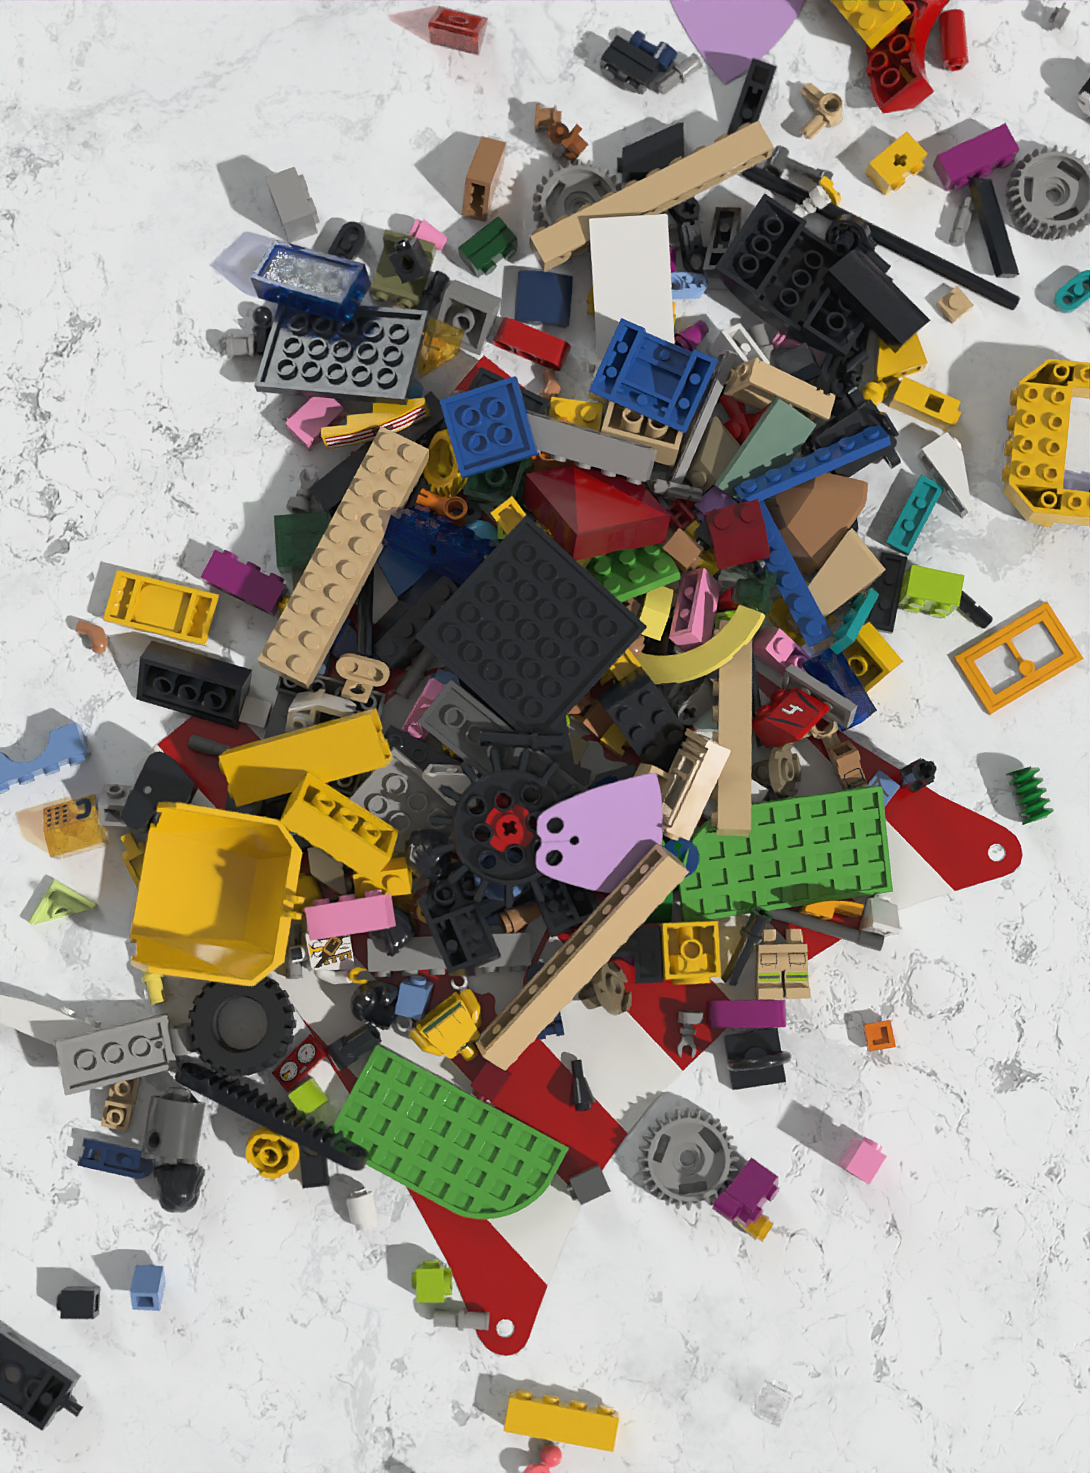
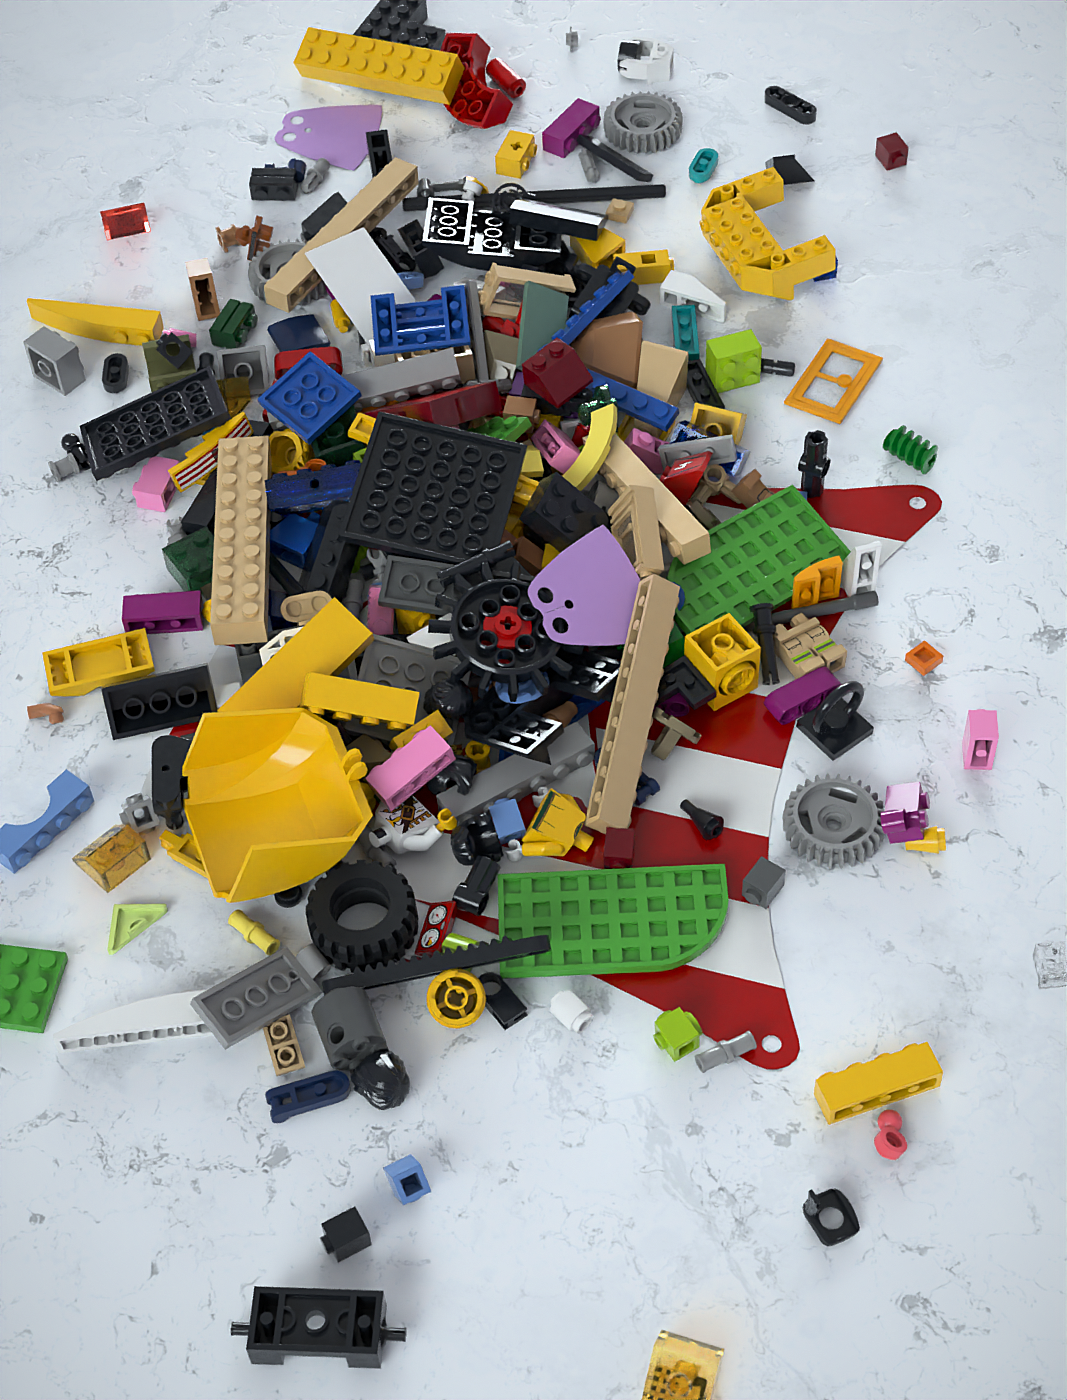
camera: 25 degrees left, 30 degrees down
(311, 281) = (100, 393): brick -> none
(366, 170) = (99, 321): none -> yellow slope
(688, 1019) = (758, 724): light grey piece -> none
(822, 117) = (440, 146): tan axle -> none
(853, 620) = (687, 400): teal plate -> none

